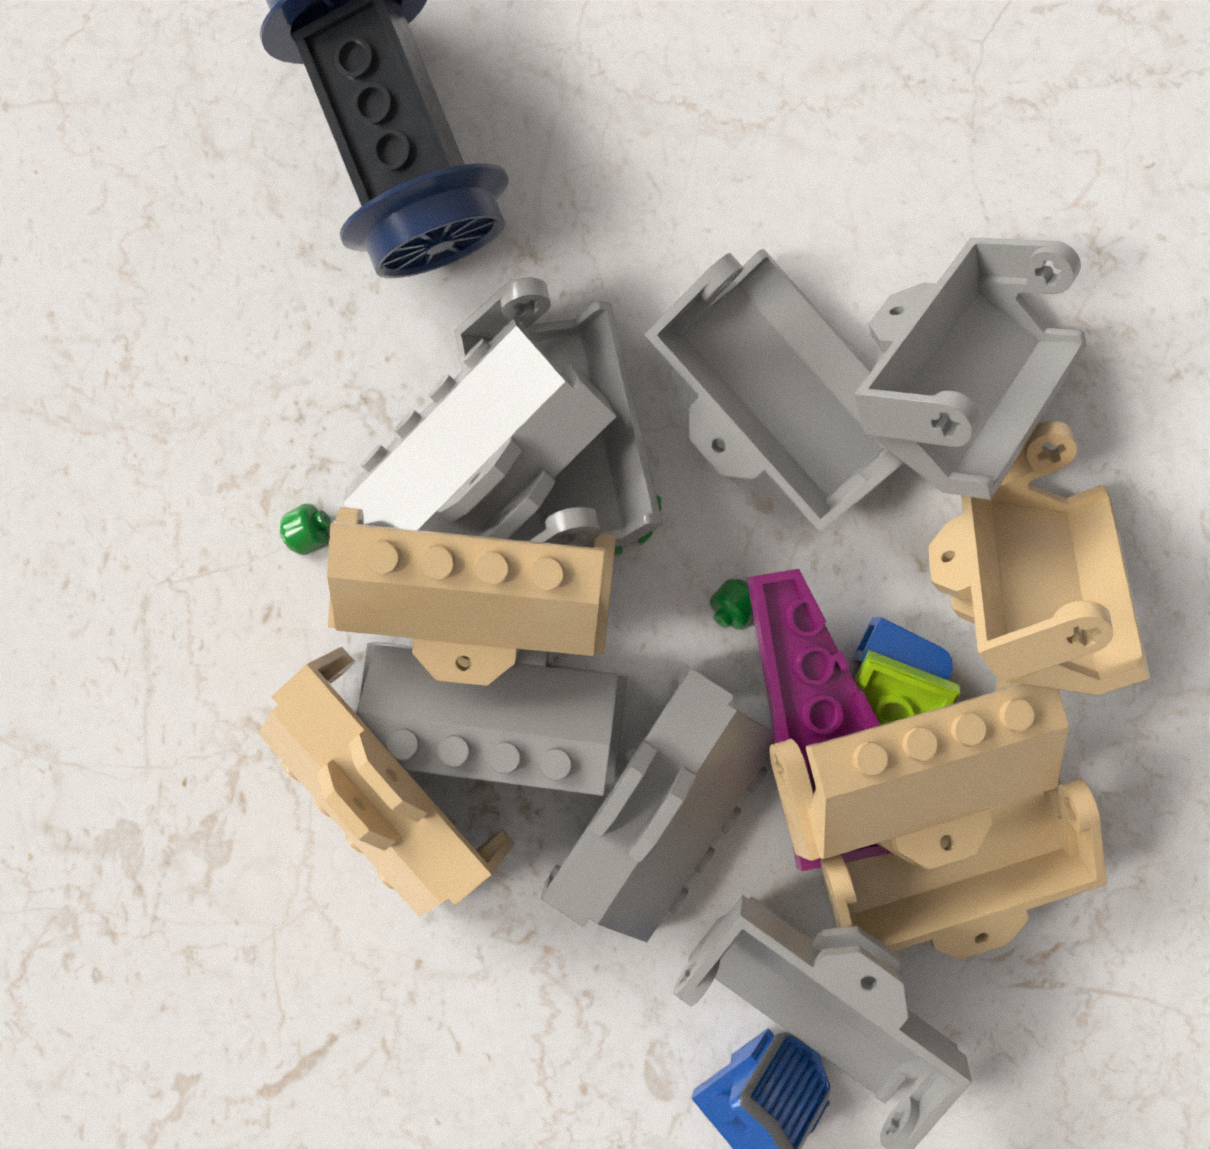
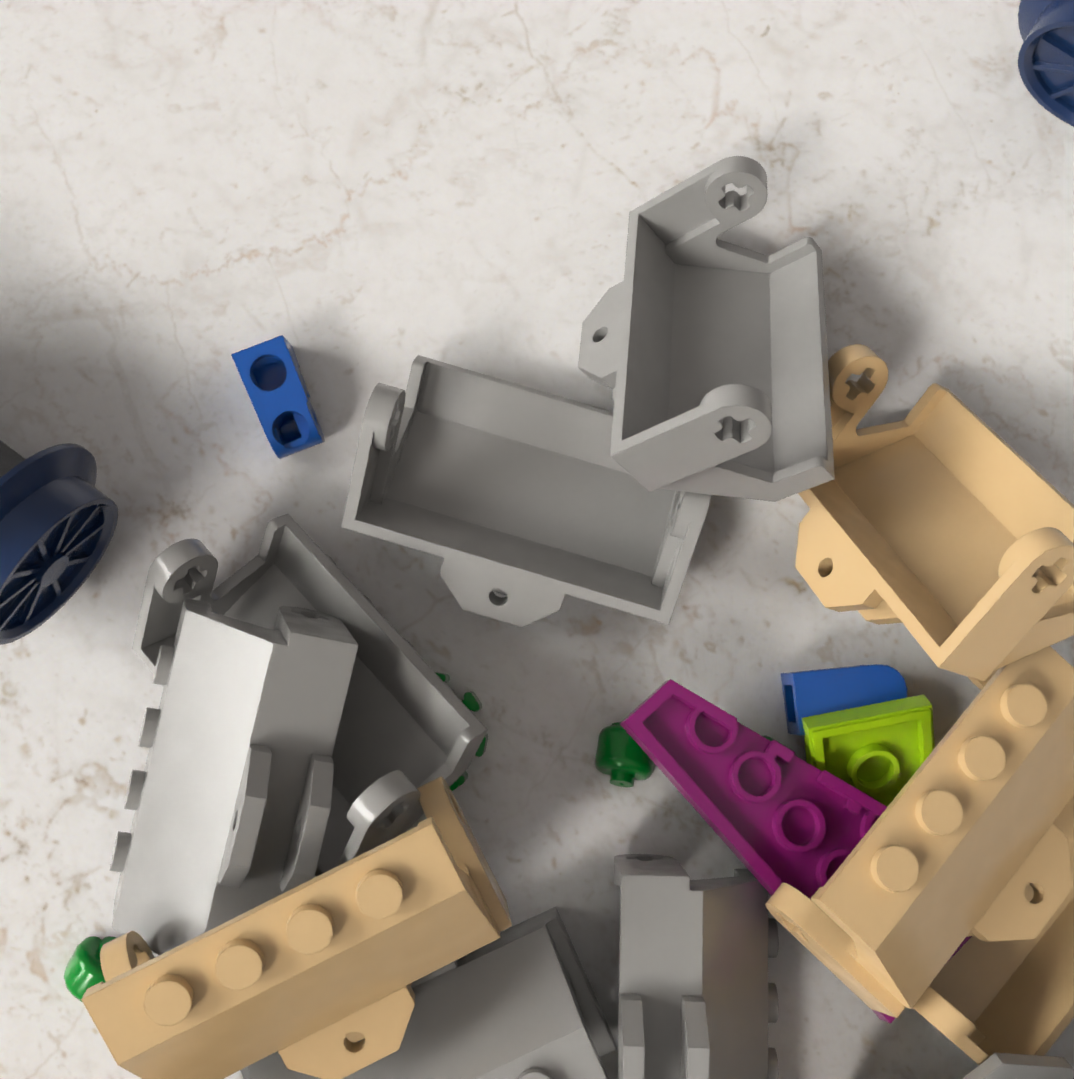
camera: 35 degrees left, 5 degrees down
(652, 219) = (279, 396): none -> blue leg

